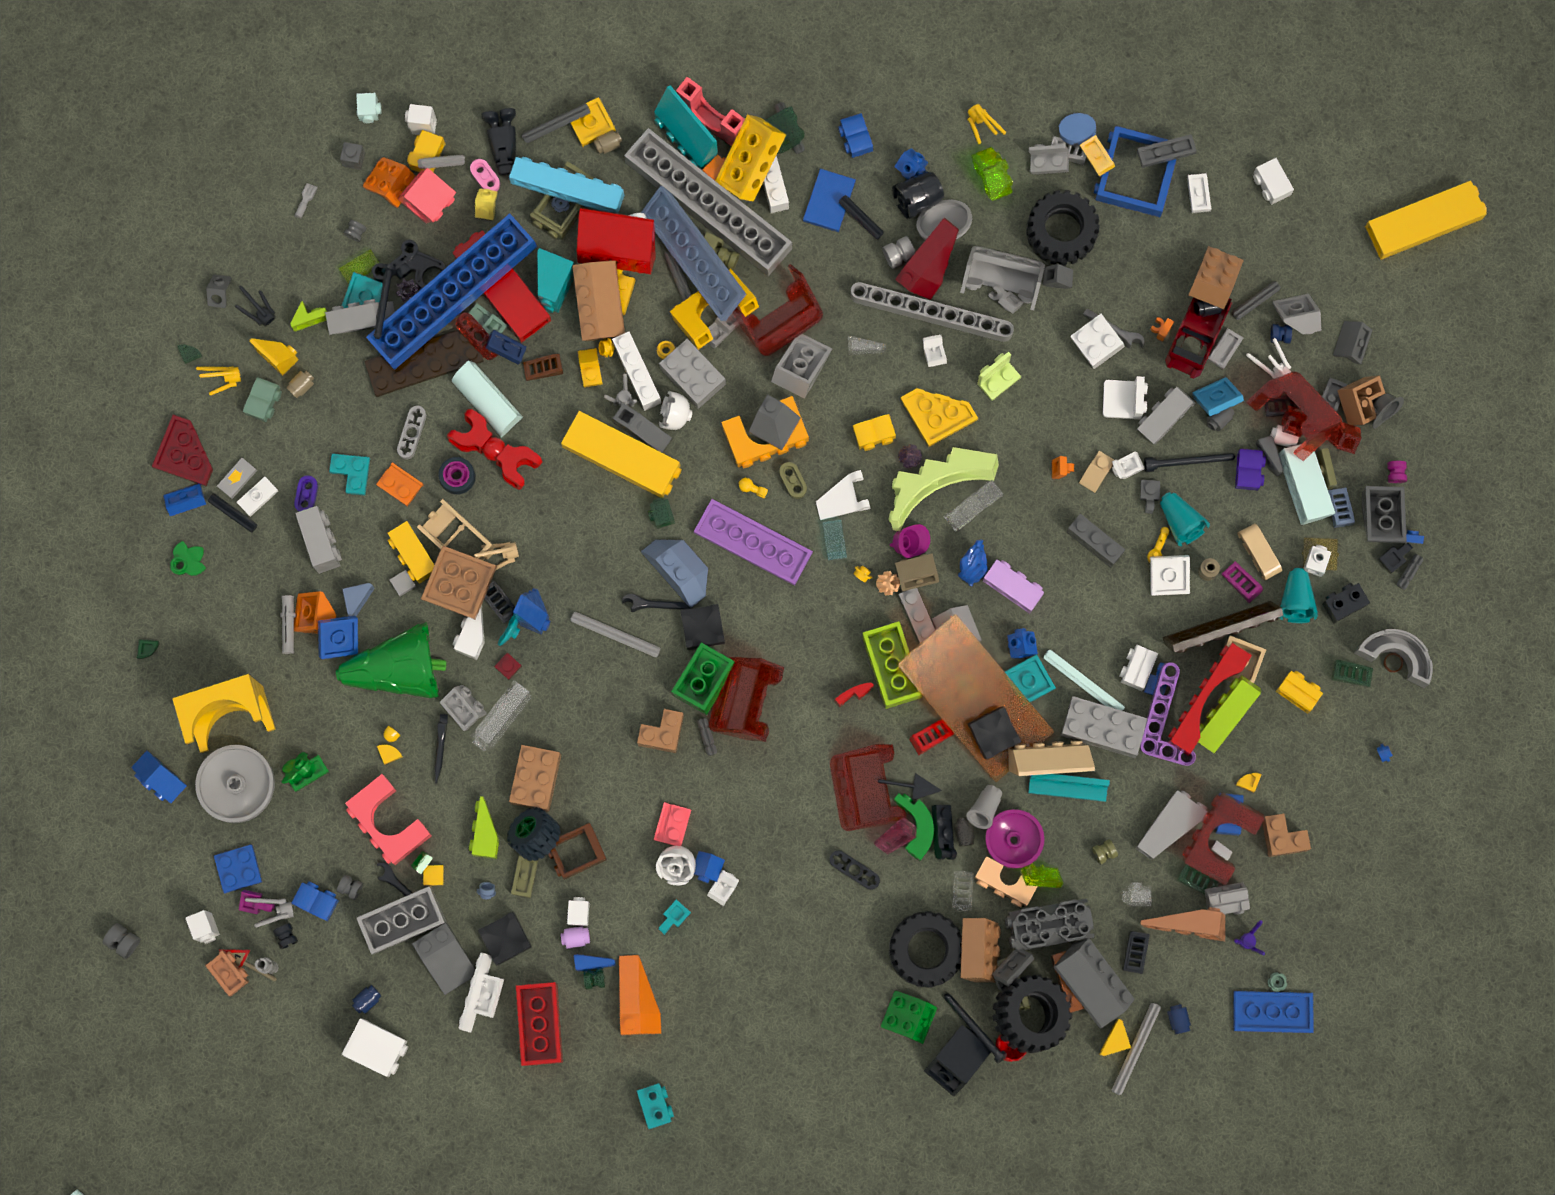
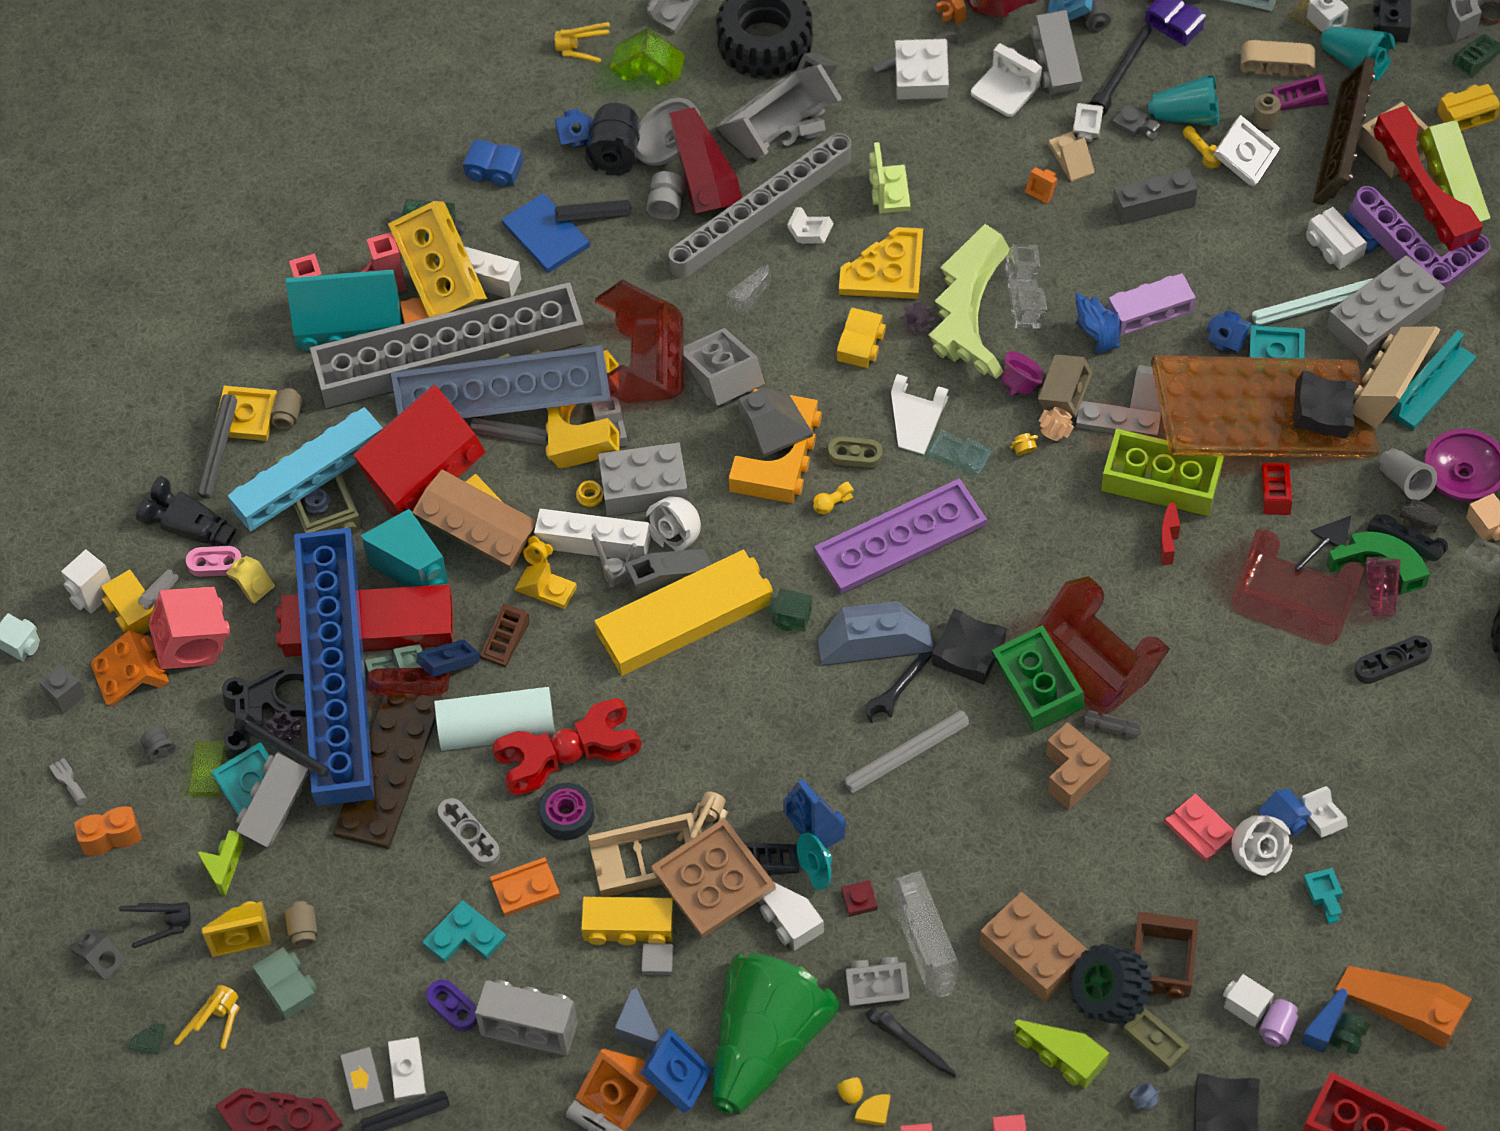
camera: 55 degrees left, 20 degrees down
(284, 243) = (103, 832): none -> orange brick

